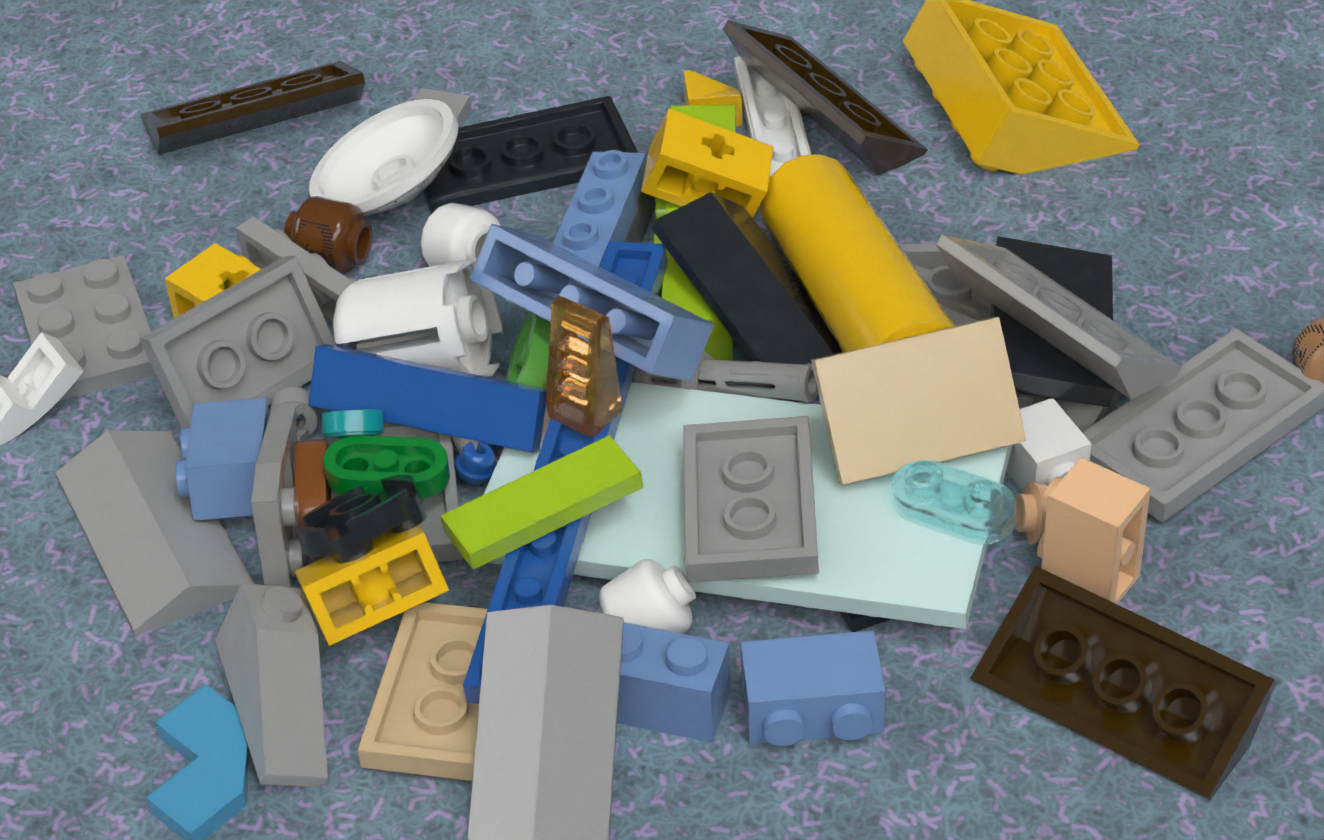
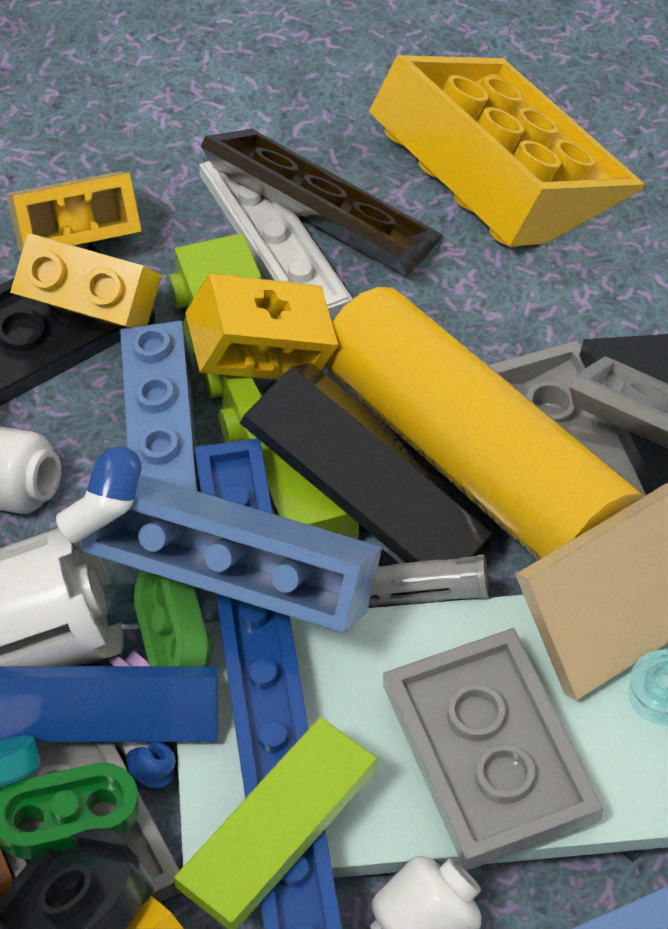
camera: 25 degrees left, 10 degrees up
(496, 231) = (107, 495): none -> arm
(579, 112) = (85, 282): none -> yellow brick
(580, 373) = (264, 646): clear orange slope -> none
(601, 67) = (76, 210): none -> yellow brick
(707, 91) = (197, 219): yellow slope -> none

